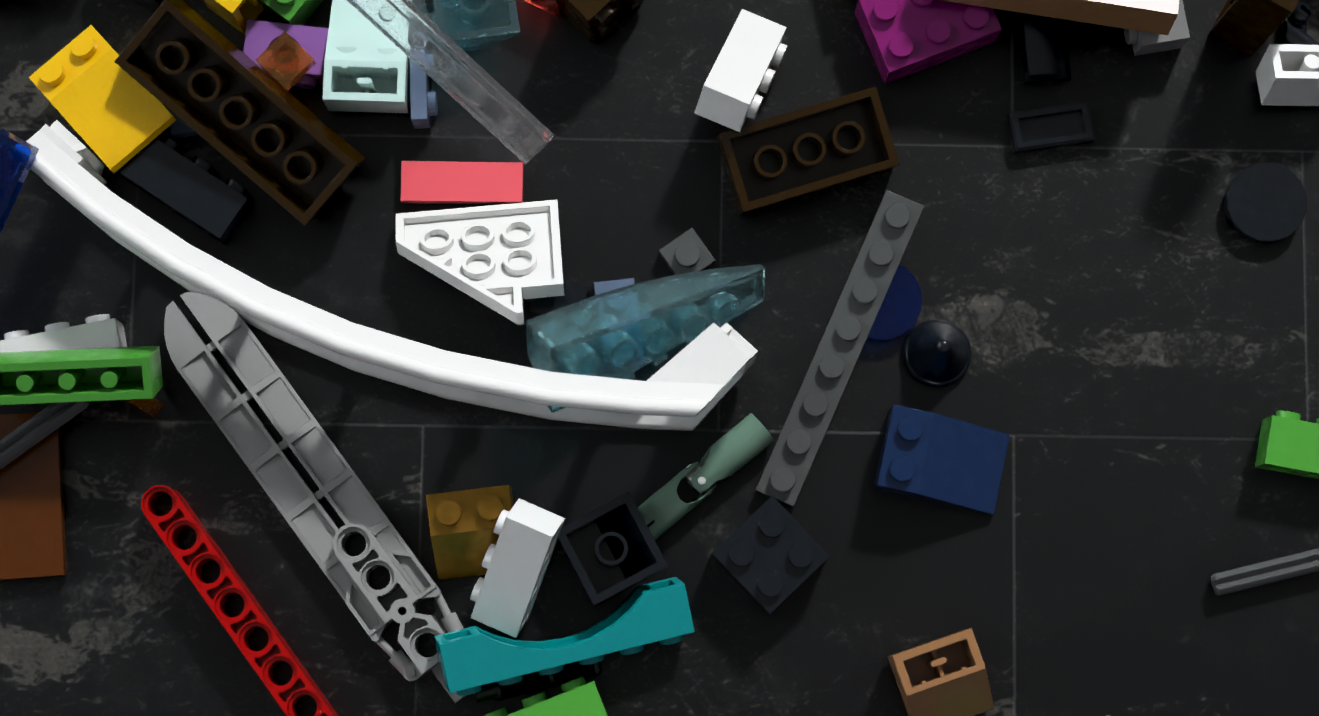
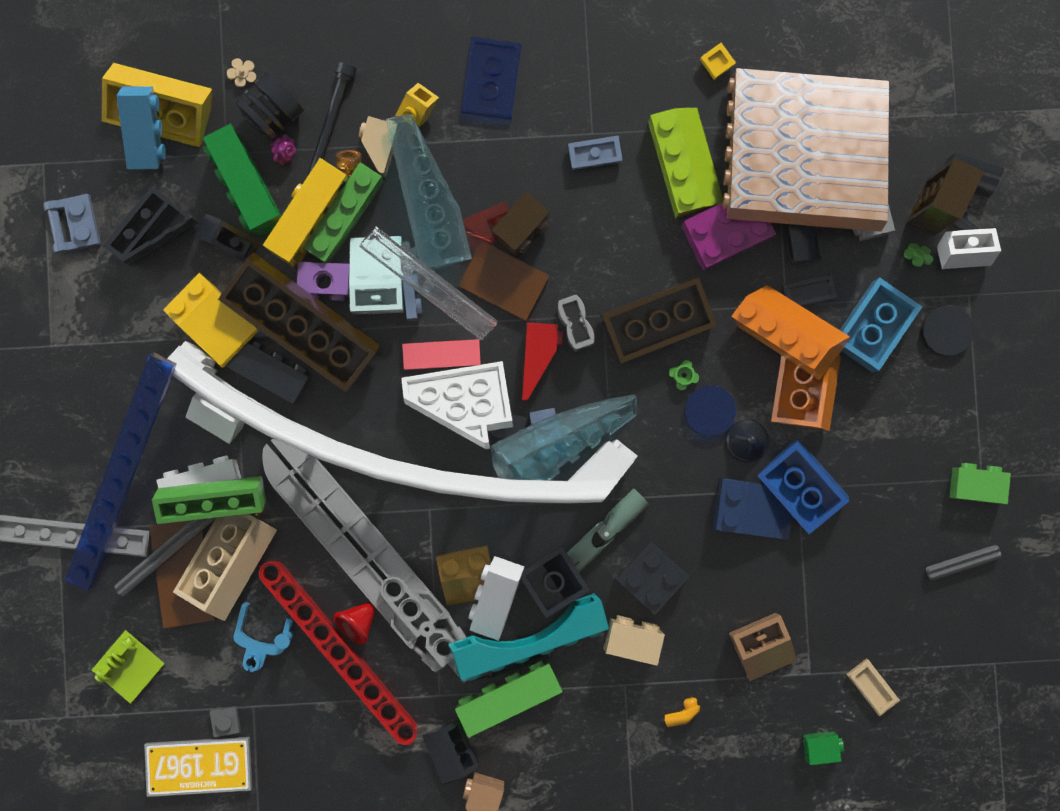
camera: 10 degrees left, 5 degrees up
(89, 481) = (224, 563): none -> tan slope
(95, 251) = (213, 419): none -> white brick
(129, 627) = (259, 649): none -> dark azure piece
(285, 61) = (325, 288): clear orange plate -> none
(289, 594) = (355, 622): none -> red hat
(569, 75) = (503, 281): none -> reddish brown tile
(617, 188) = (540, 349): none -> red slope
(681, 156) = (572, 315): none -> light grey brick
(687, 254) = (586, 390): dark grey plate -> none
(733, 652) = (634, 640): none -> tan brick
(742, 71) = (614, 273): white brick -> none
(831, 238) = (691, 376): none -> bright green plate
(840, 348) = (686, 443): dark grey plate -> none
(1014, 180) = (790, 330): none -> orange slope
(1021, 428) = (803, 486): none -> blue slope
(1036, 274) = (804, 399): none -> orange slope
(1152, 183) = (878, 324): none -> dark azure brick
(1225, 81) = (918, 254): none -> bright green plant

